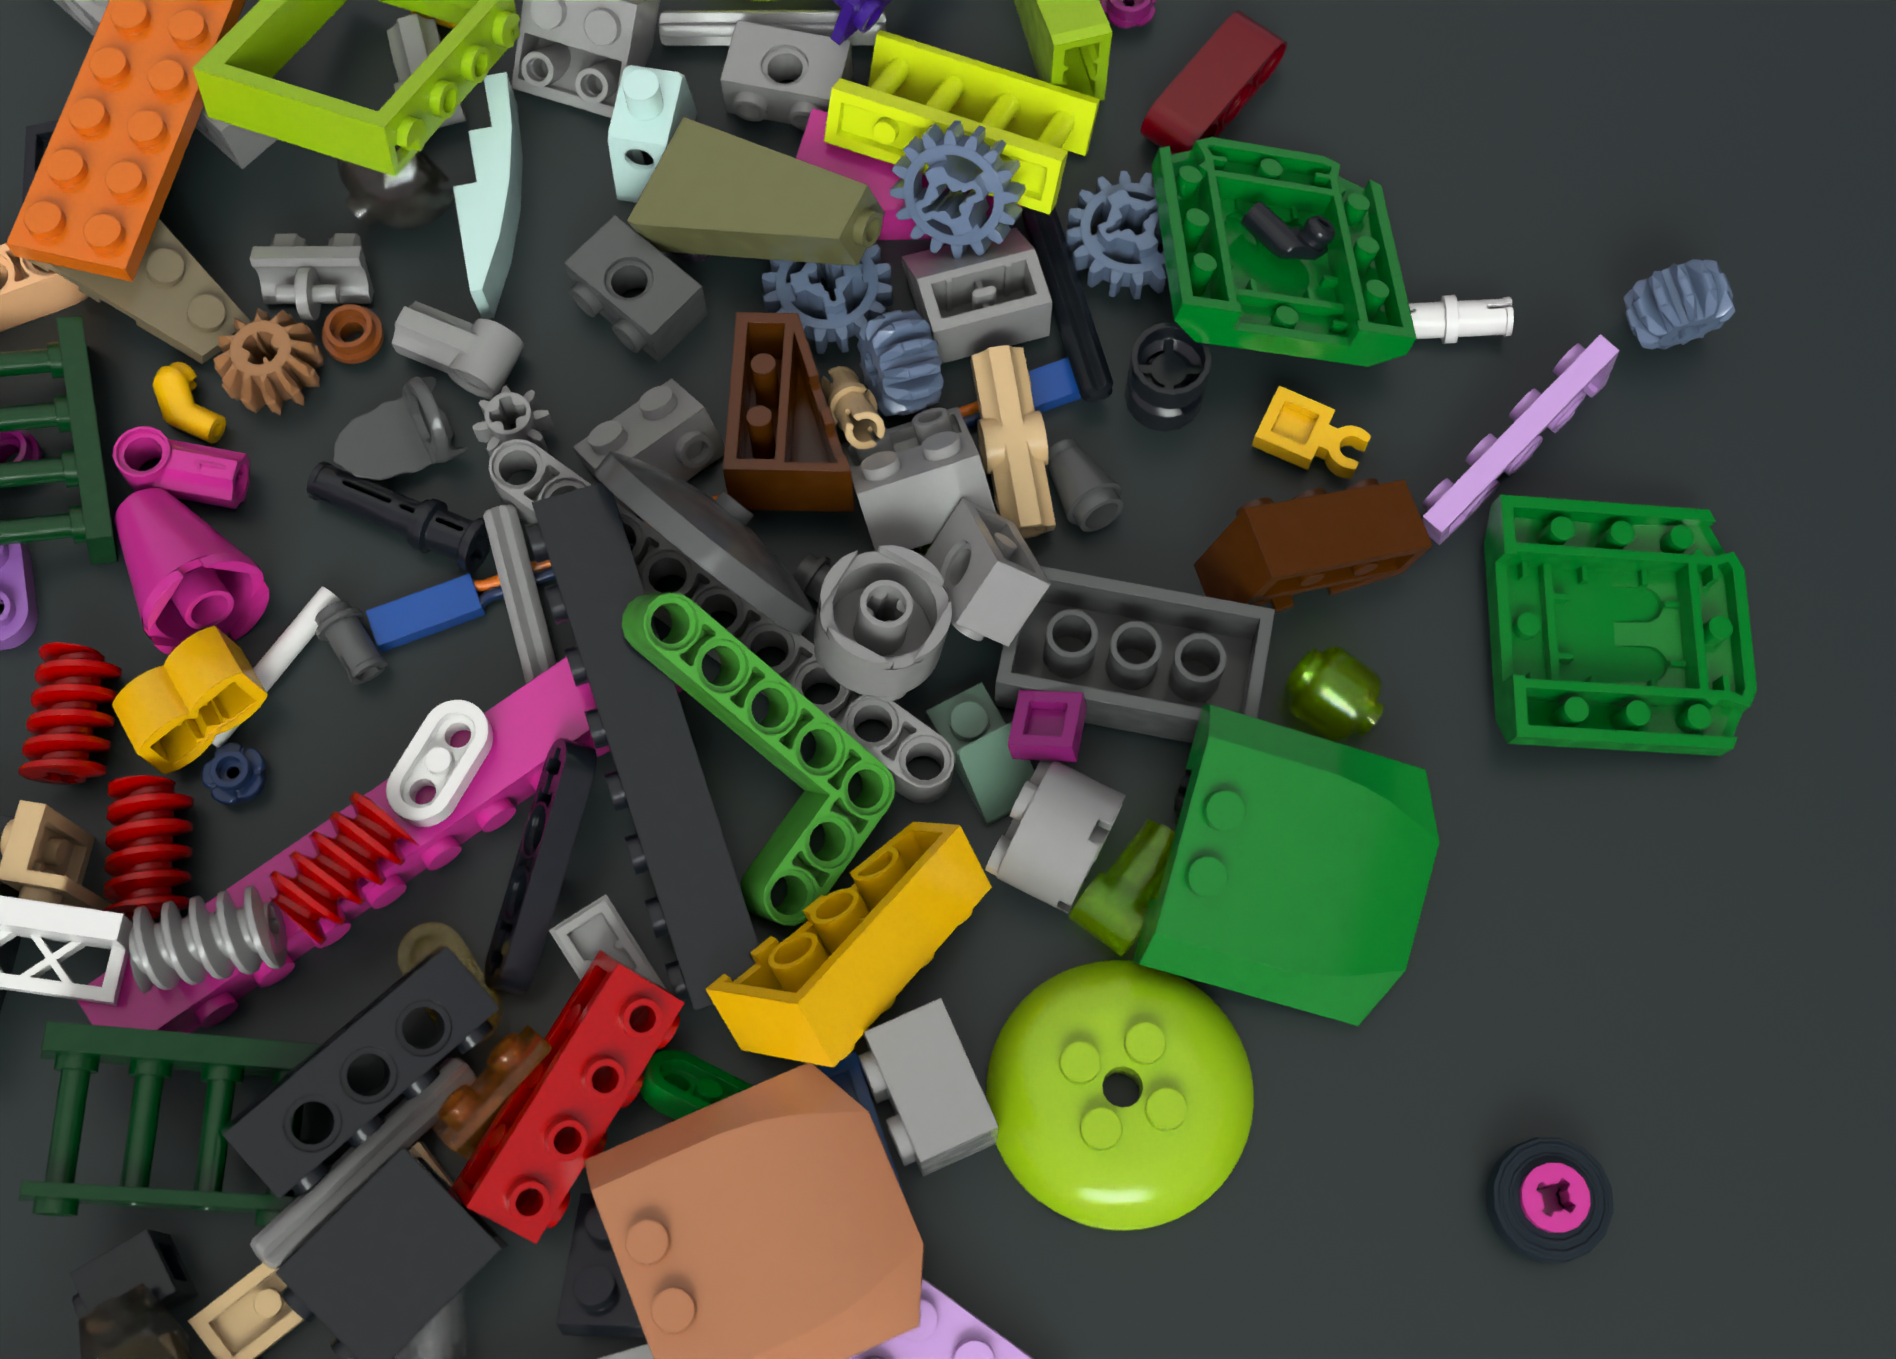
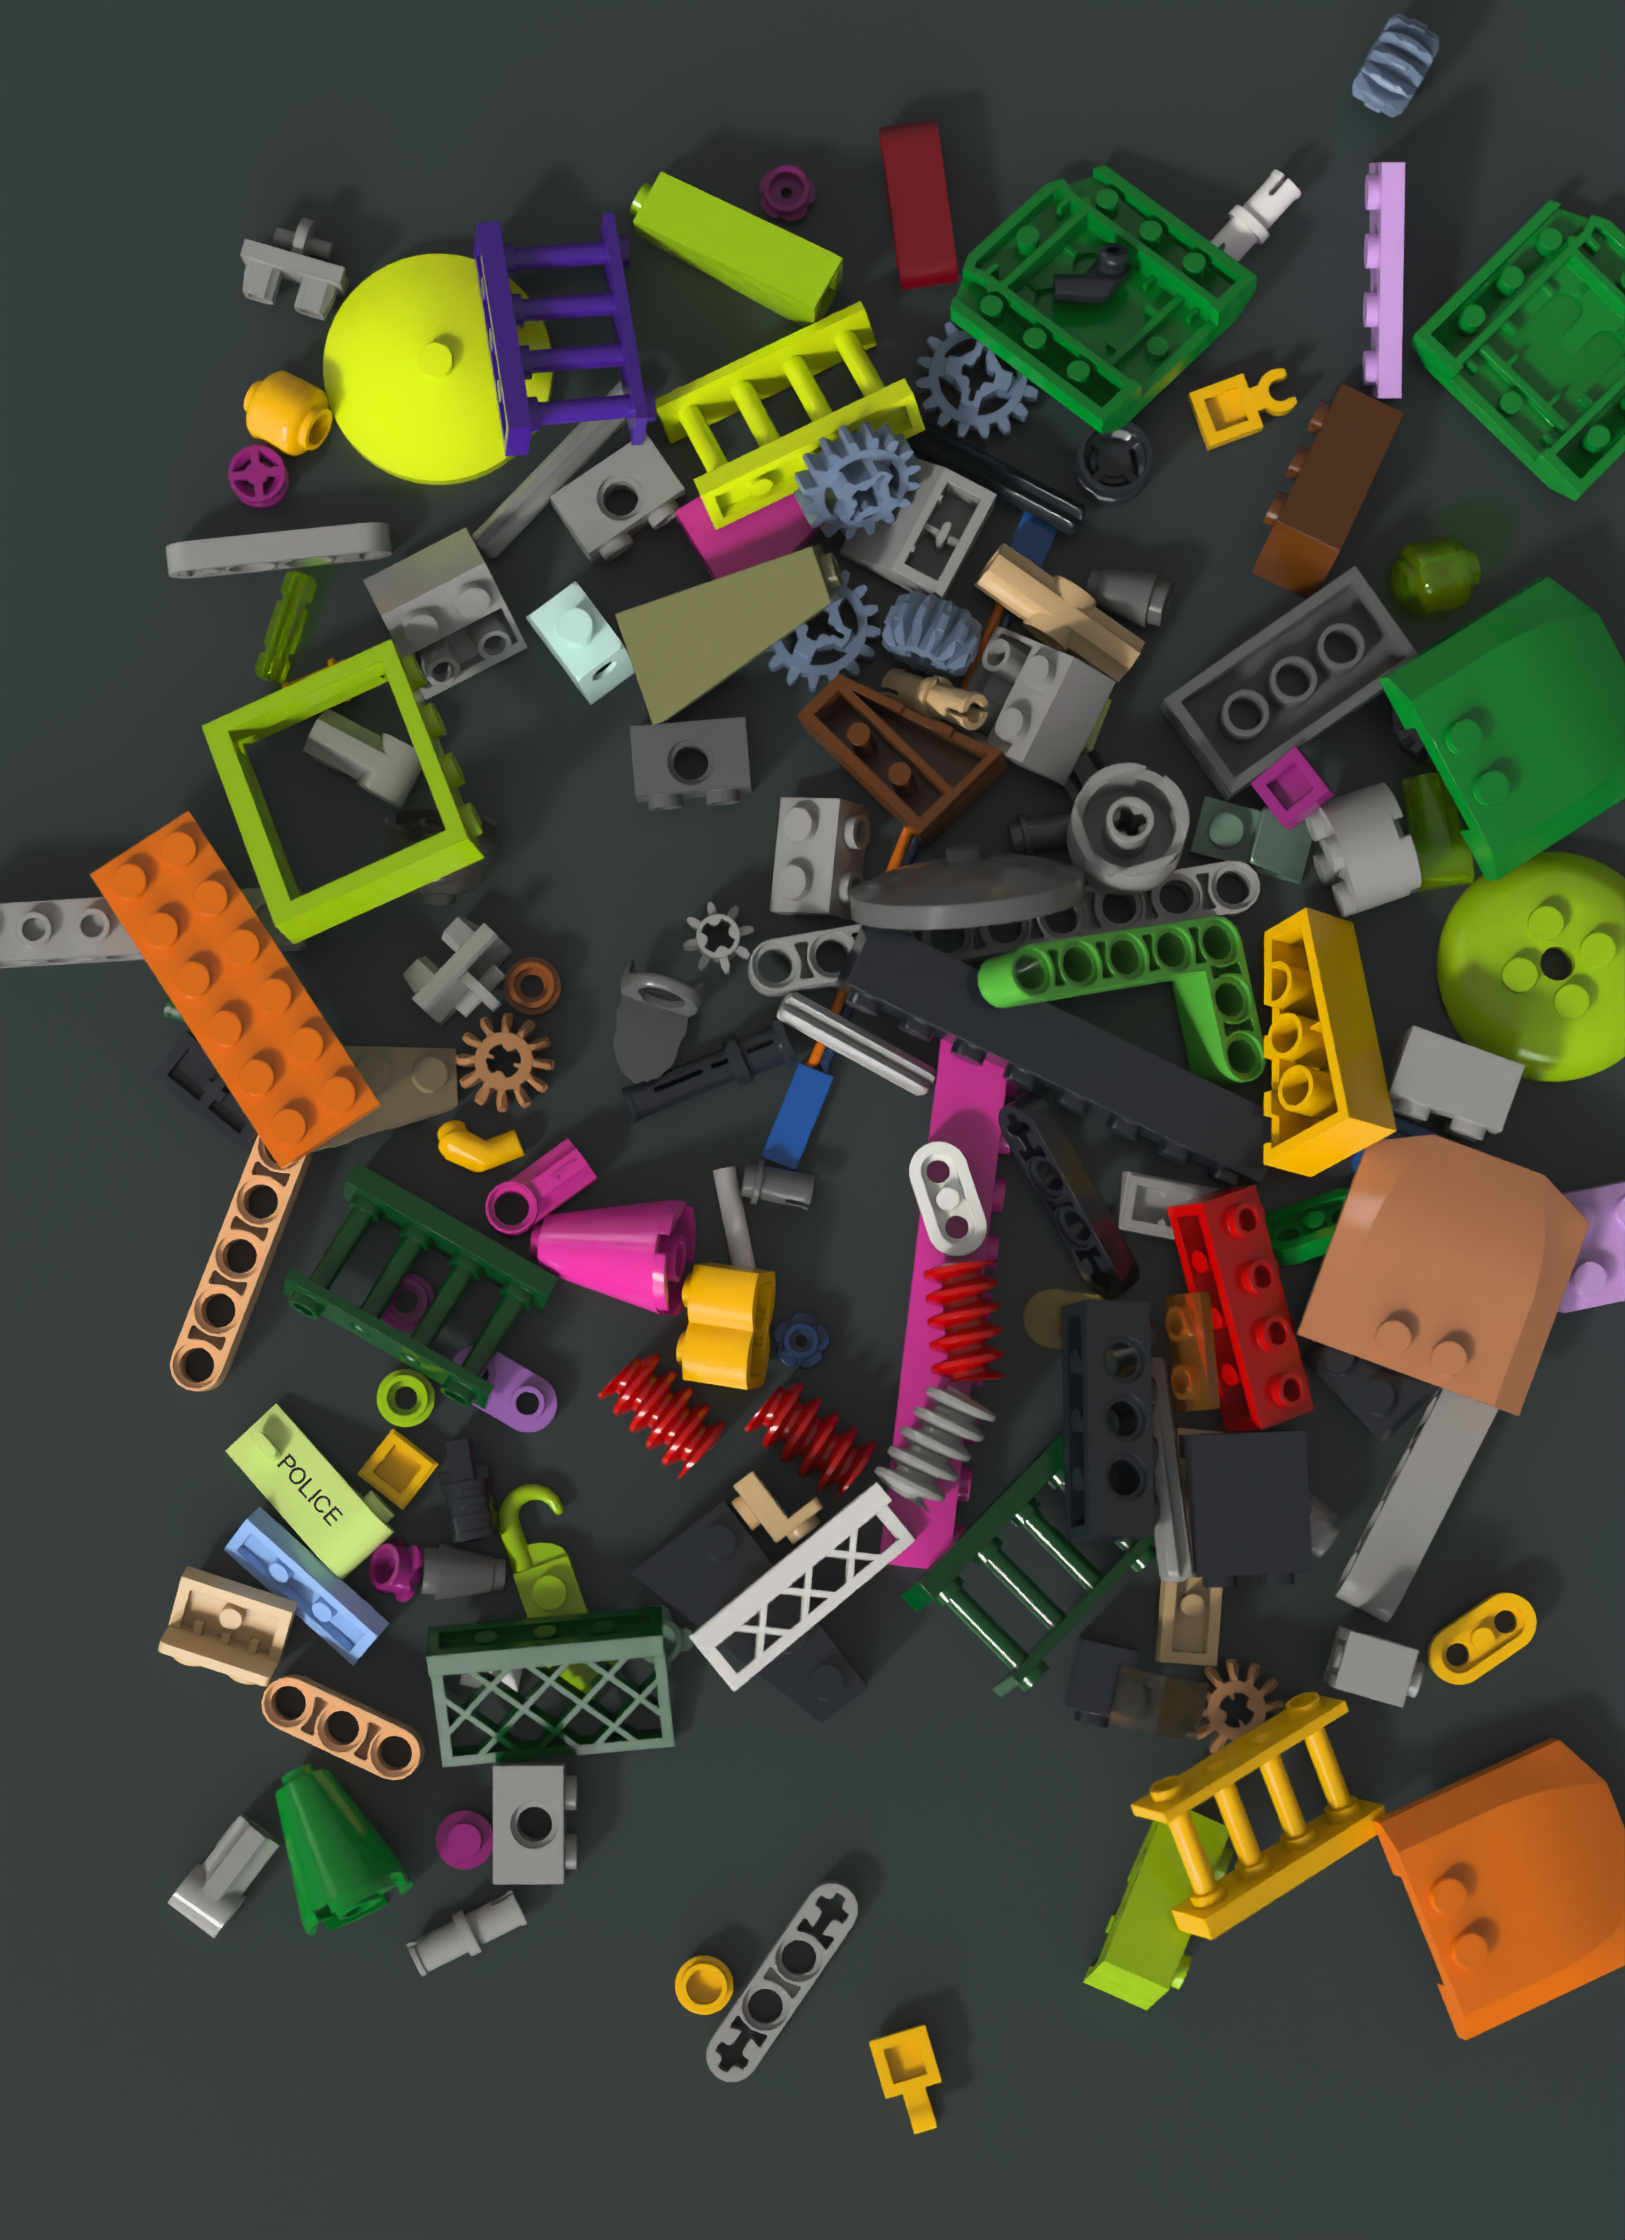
camera: 45 degrees left, 15 degrees up
(472, 354) = (633, 917): light grey piece -> none
(492, 205) = (528, 807): light aqua slope -> none
(987, 573) = (1153, 727): light grey brick -> none

